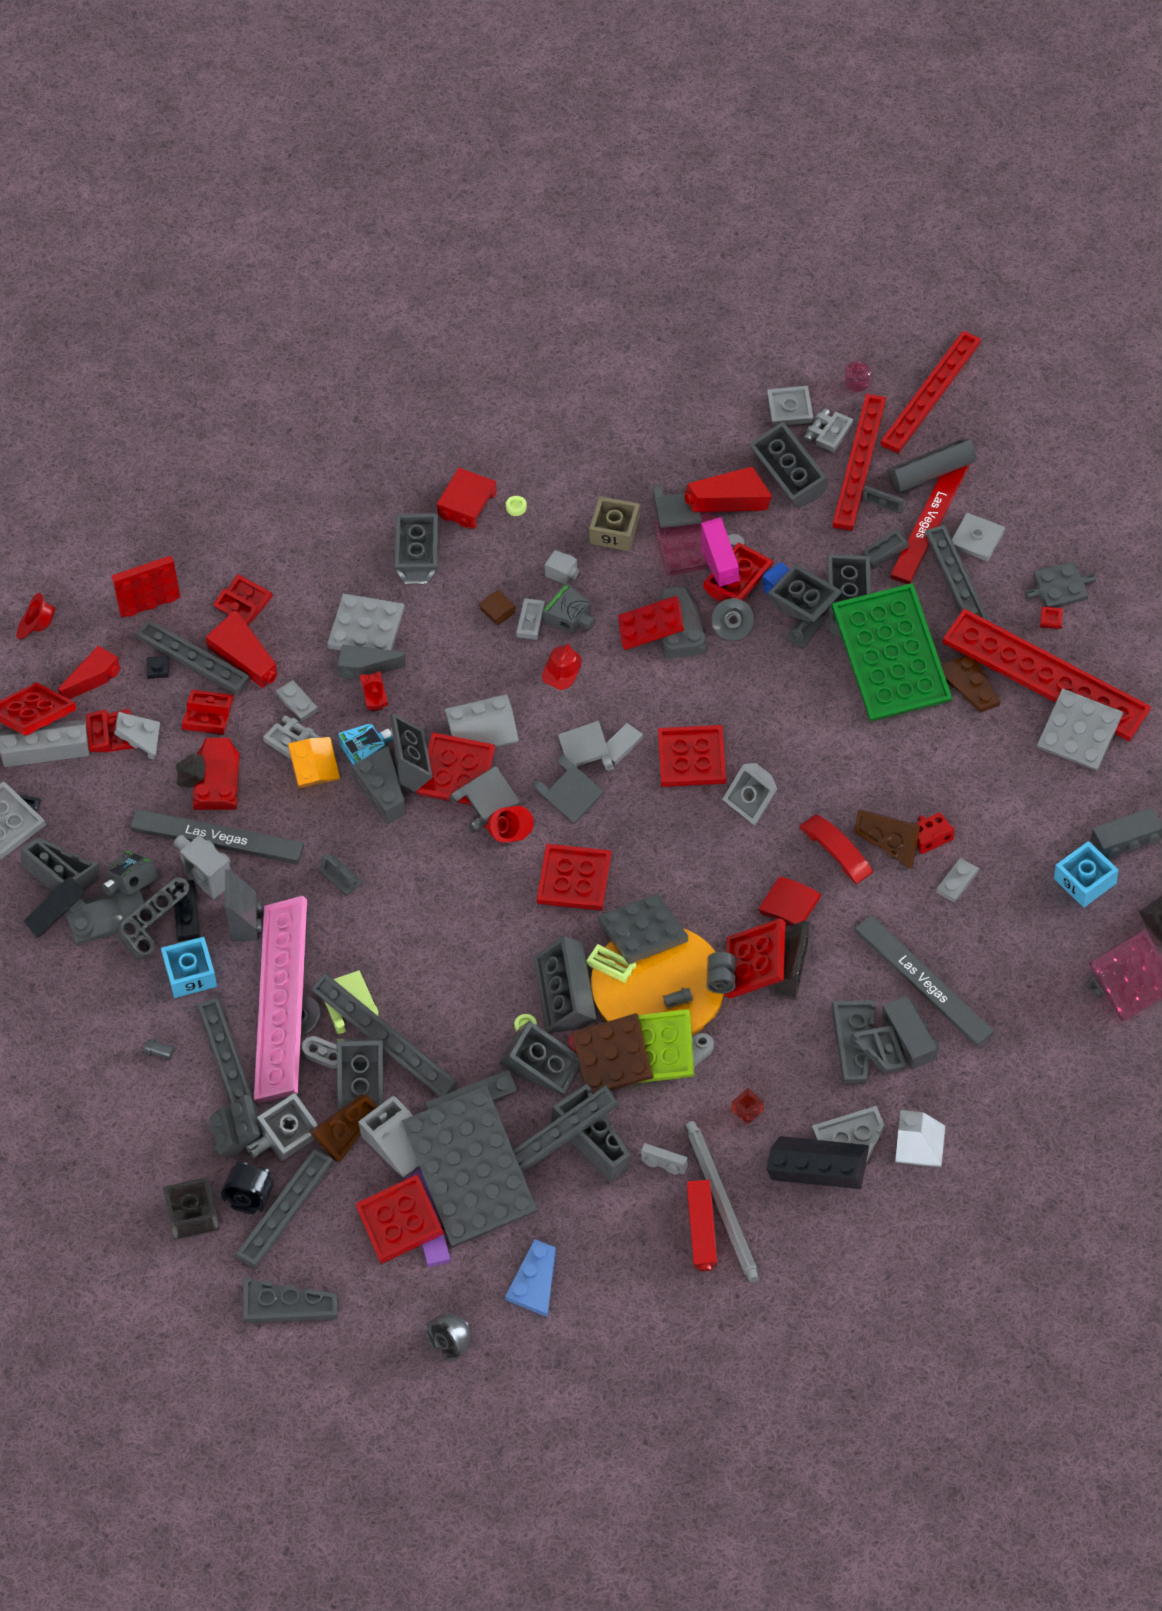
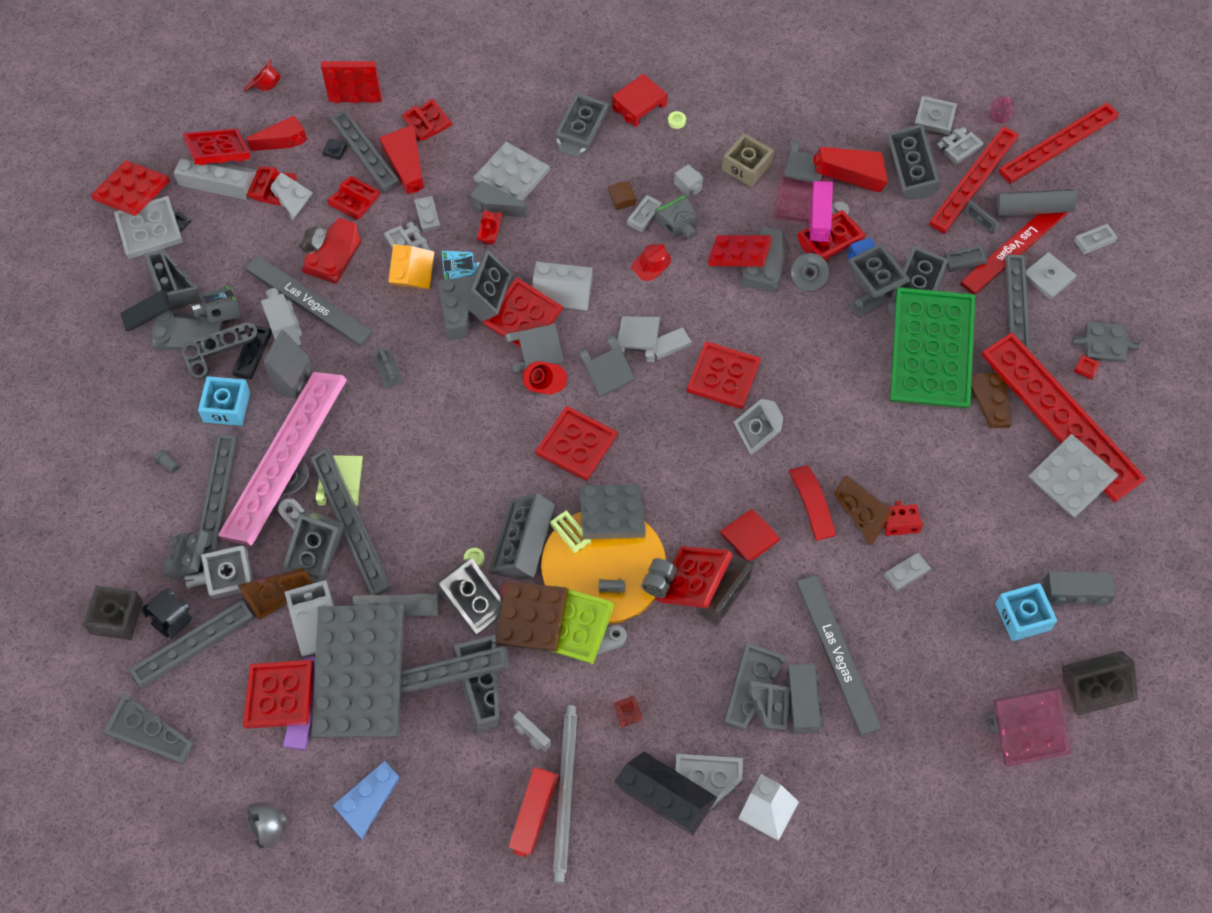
camera: 20 degrees right, 5 degrees up
(1008, 482) = (1095, 239): none -> light grey plate

